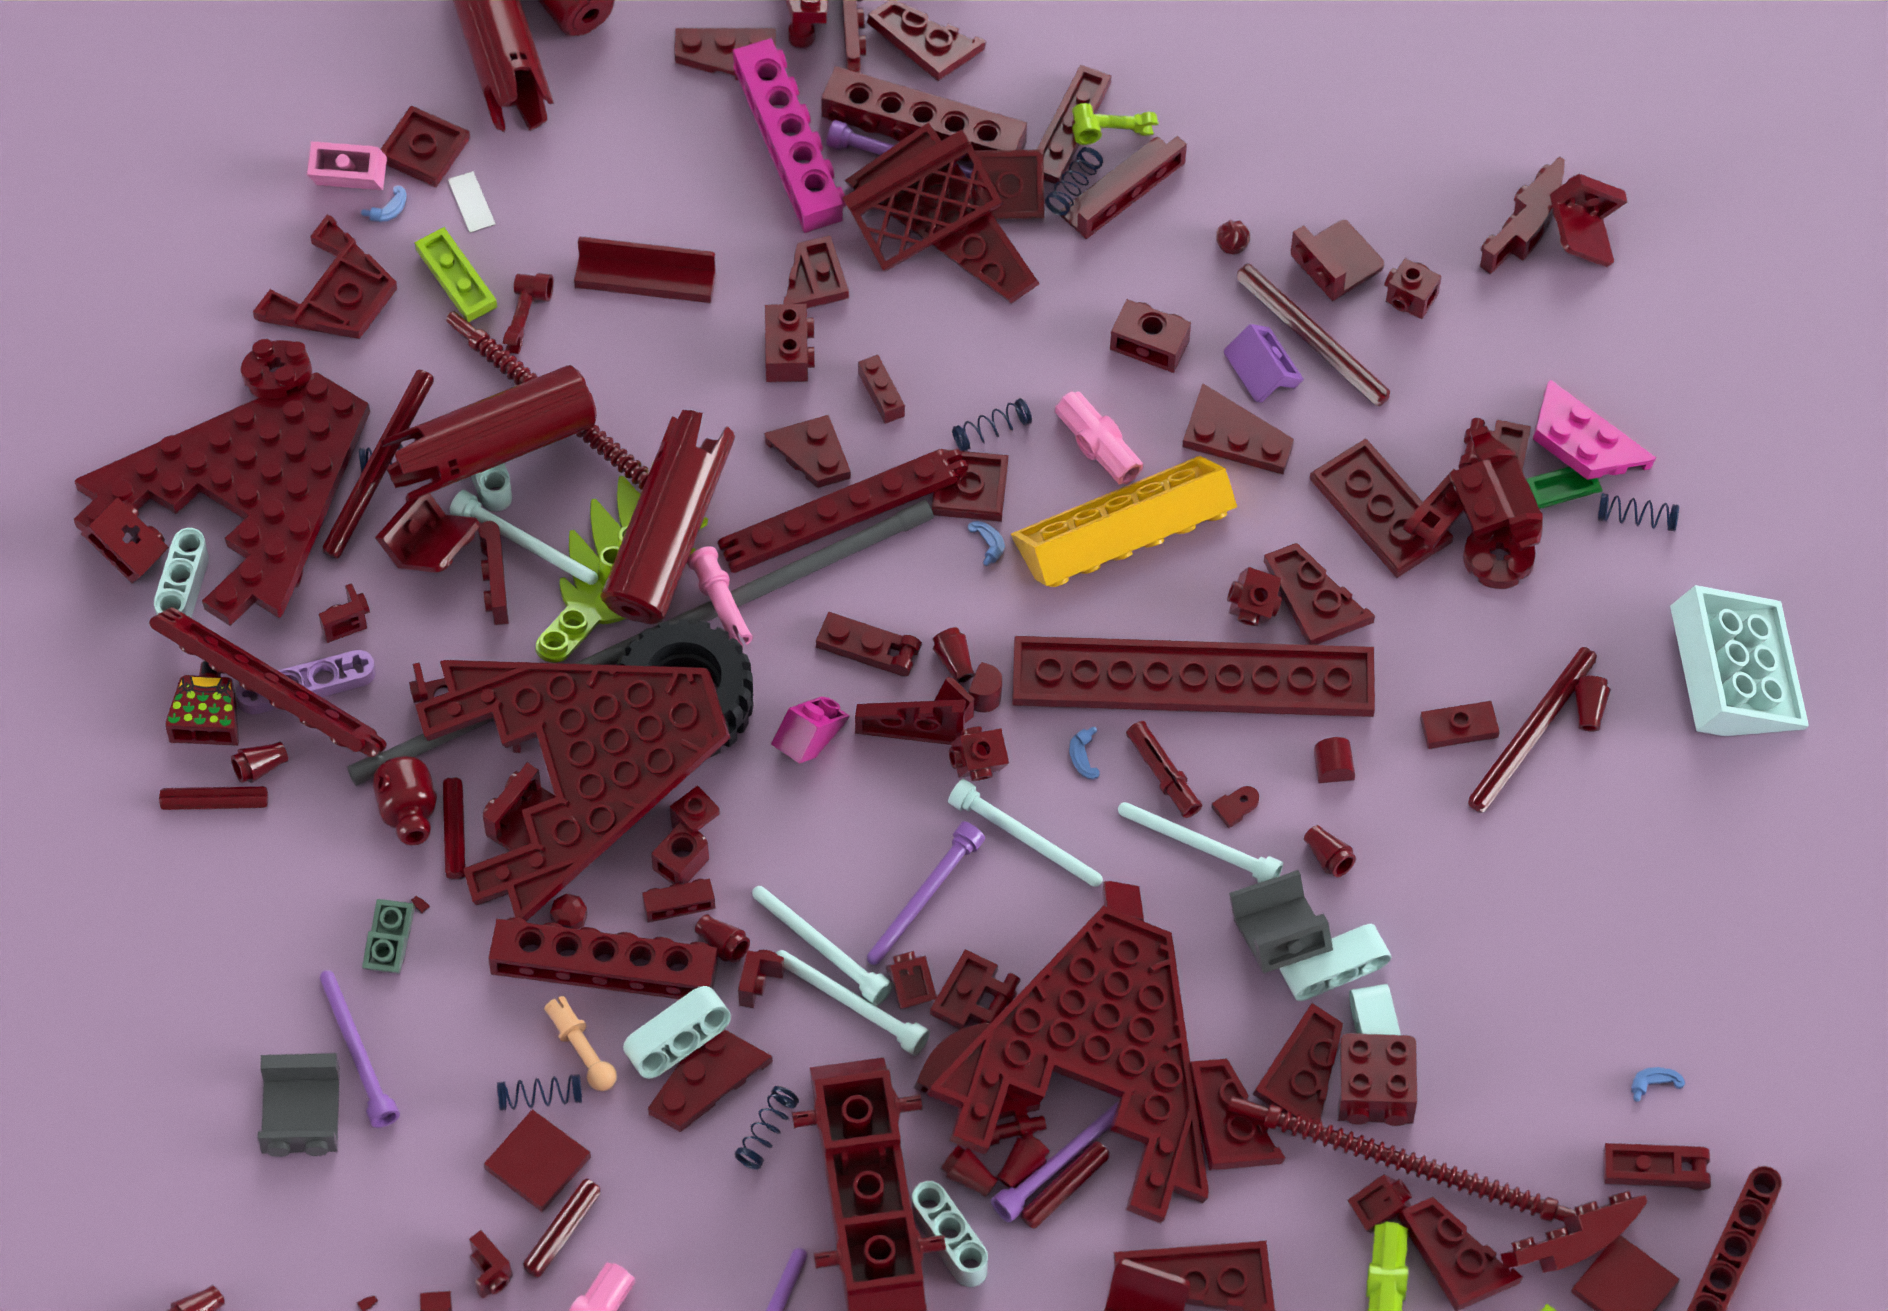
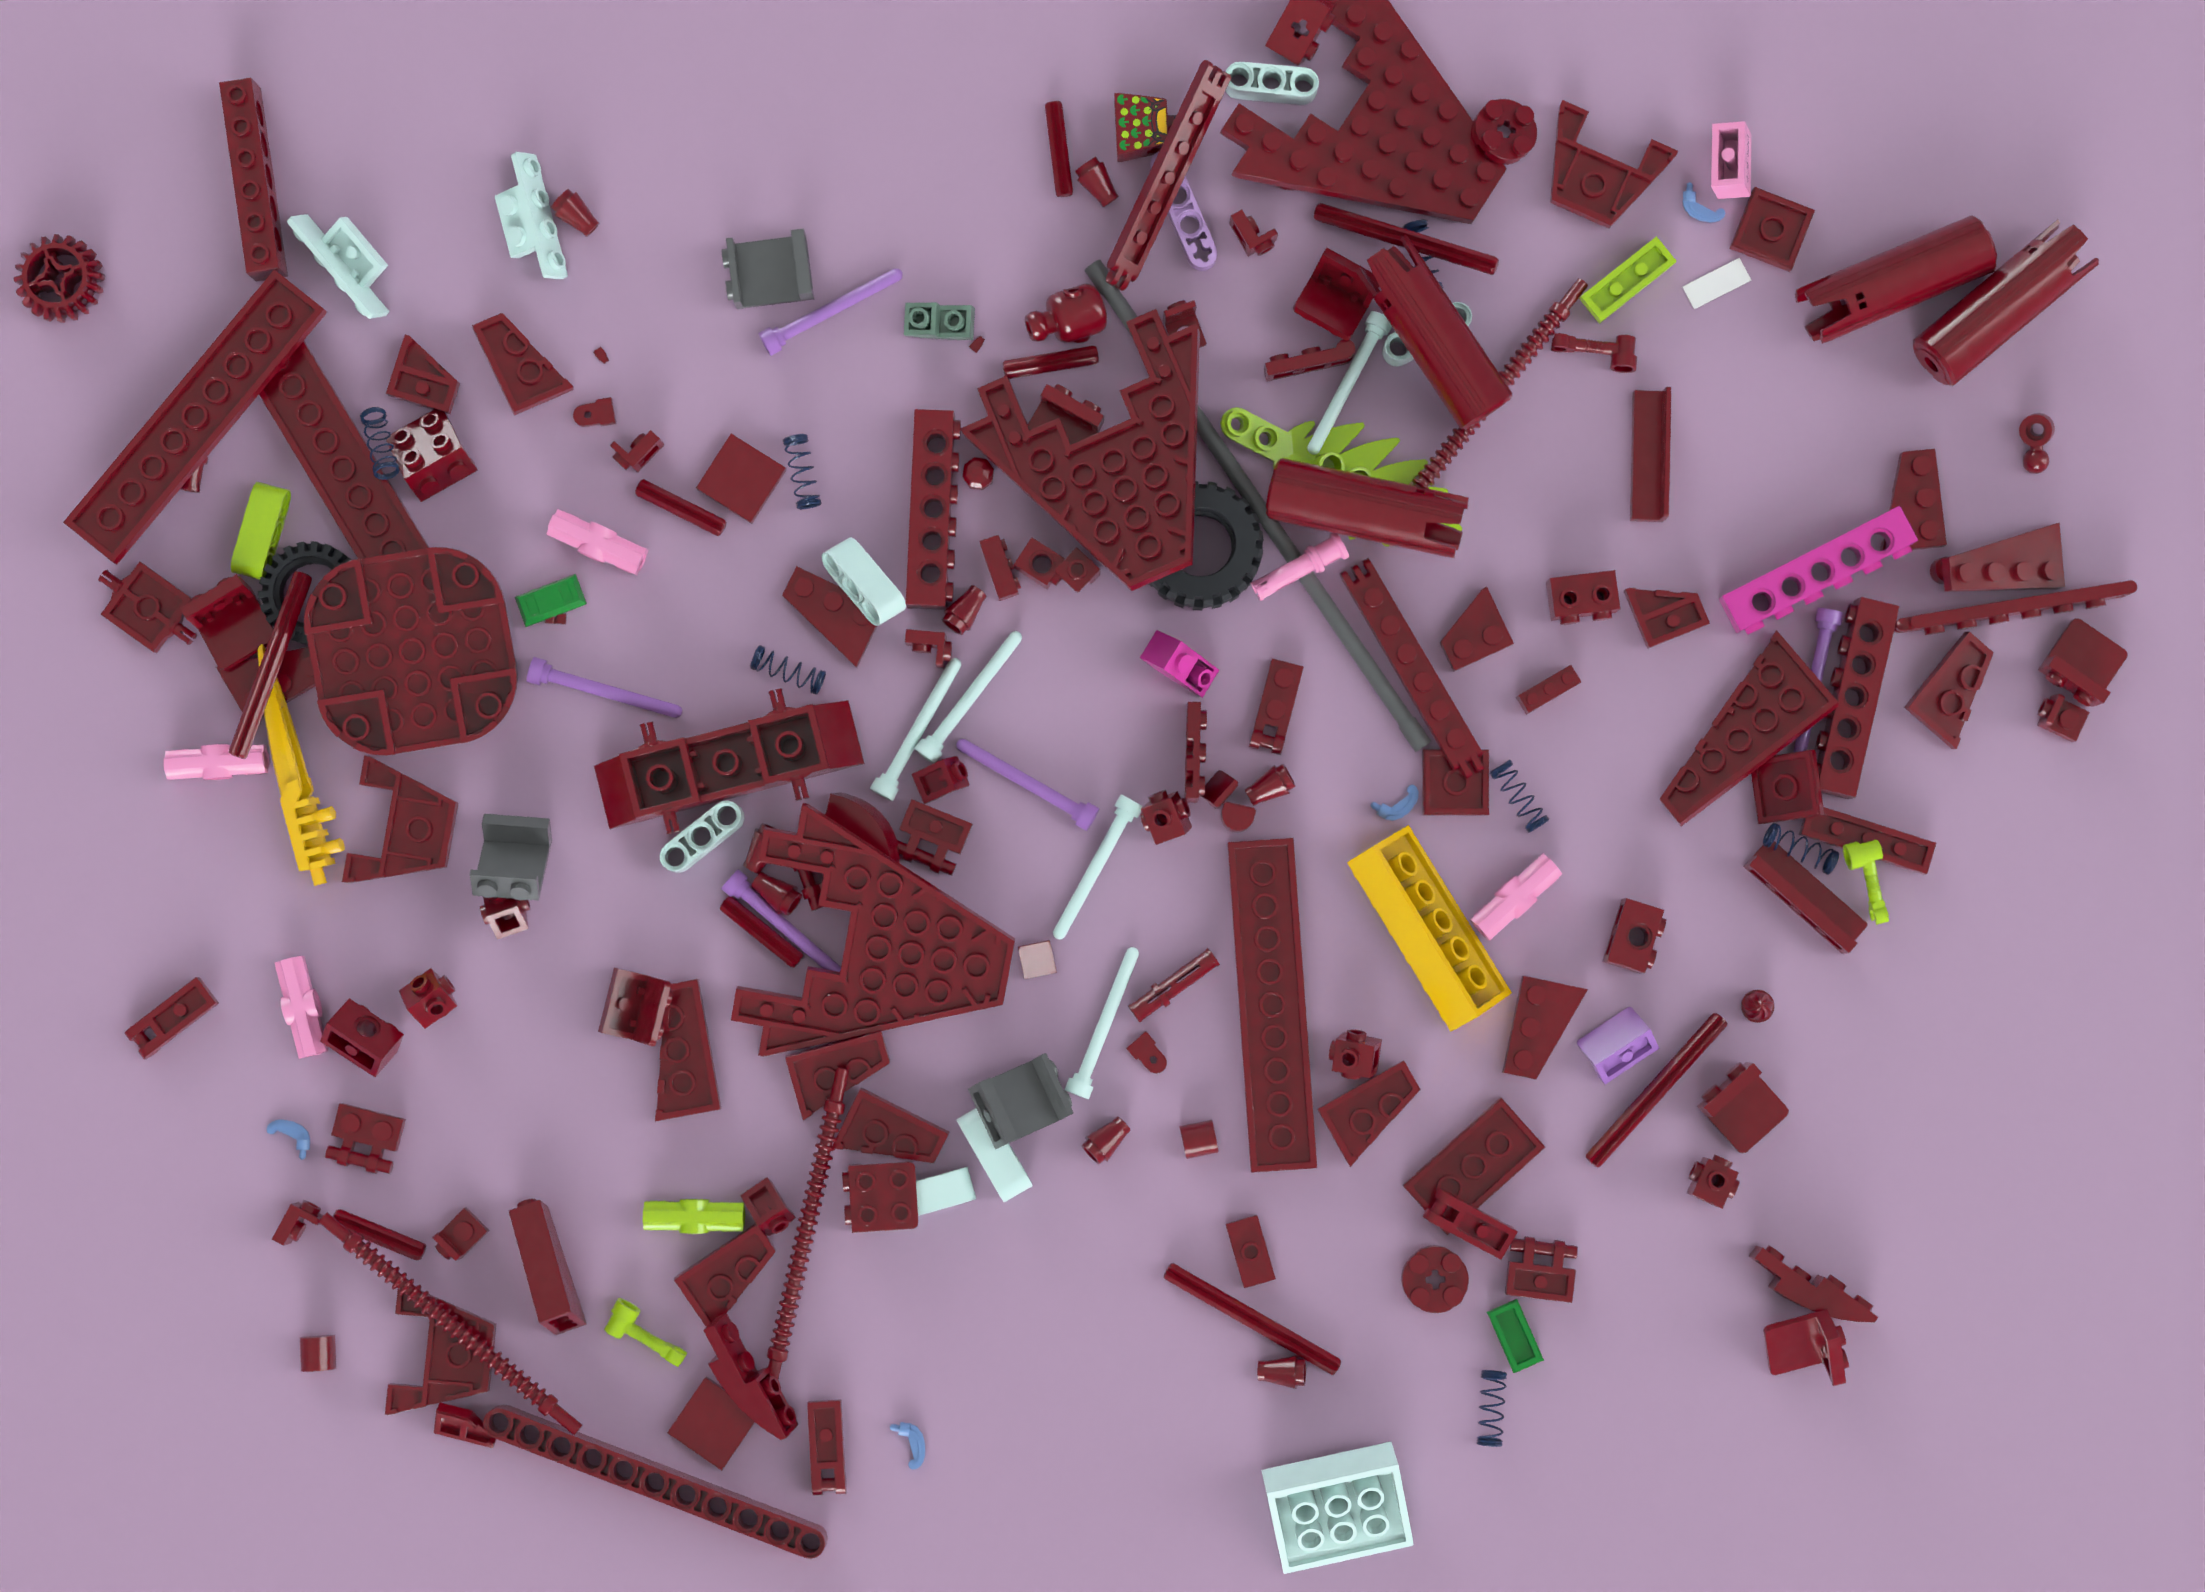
camera: 85 degrees right, 25 degrees up
(600, 1074) = (824, 521): light nougat pin -> none
(915, 172) = (1776, 691): dark red fence -> none
(1078, 753) = (1184, 907): medium blue piece -> none
(1497, 492) = (1486, 1276): dark red plate -> none
(1585, 438) = (1567, 1353): wing -> none

